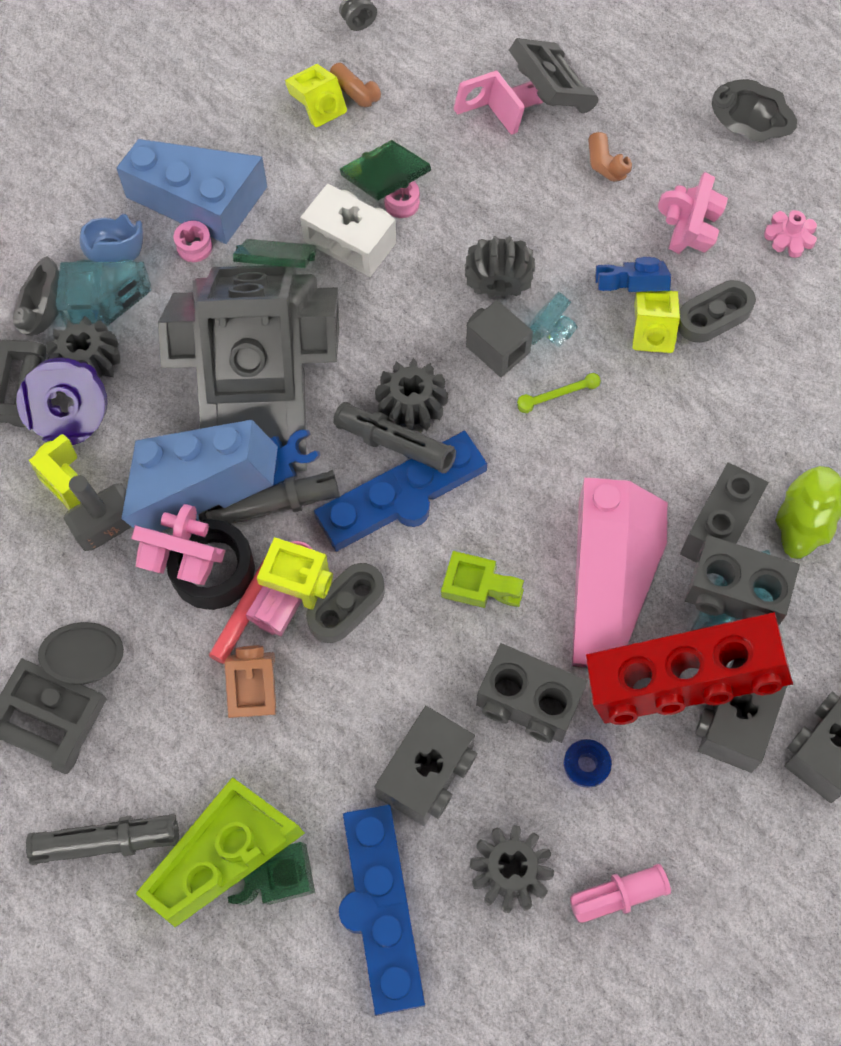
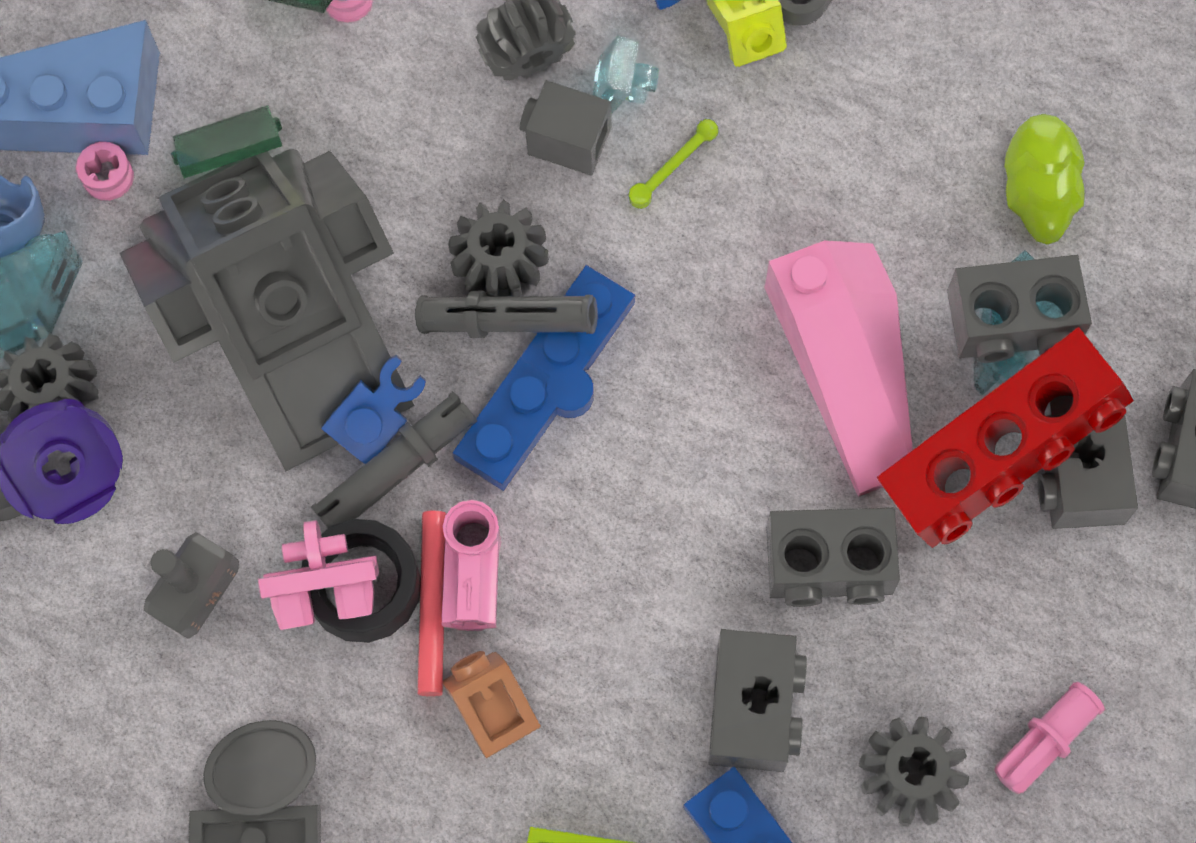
camera: 25 degrees left, 5 degrees up
(53, 468) = (109, 565): neon yellow bracket -> none
(198, 470) = (288, 474): medium blue wedge -> none
(296, 572) = (481, 541): neon yellow bracket -> none
(345, 603) = (552, 551): dark grey plate -> none
(349, 229) = (304, 66): white brick -> none
(474, 579) = (693, 449): lime plate -> none
(593, 750) = (949, 592): clear blue plate -> none
(725, 509) = (950, 226): dark grey brick -> none

